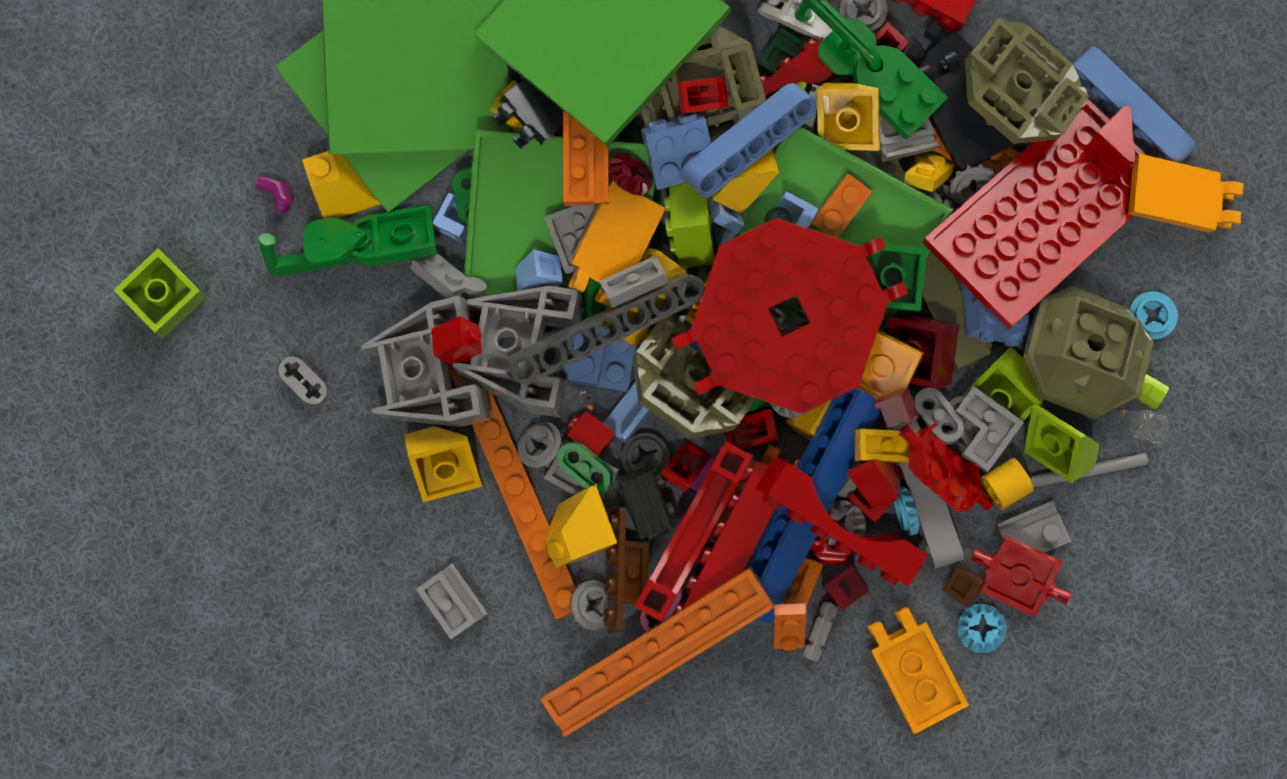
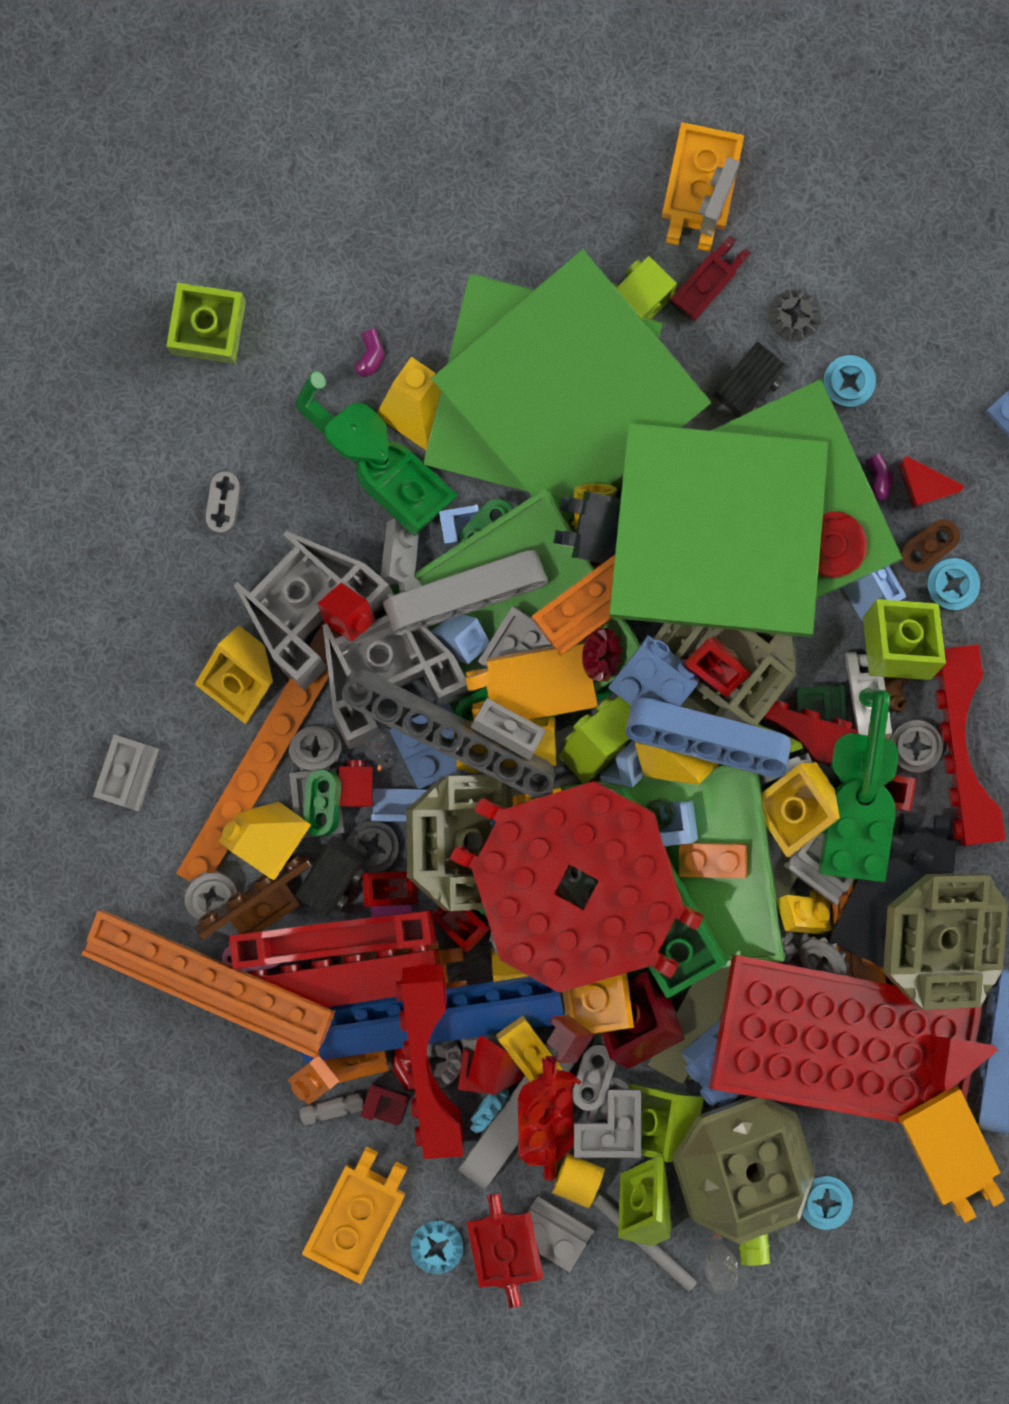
camera: 55 degrees right, 5 degrees up
(508, 242) = (465, 592): none -> light grey beam
(964, 585) = (461, 1206): reddish brown tile -> none

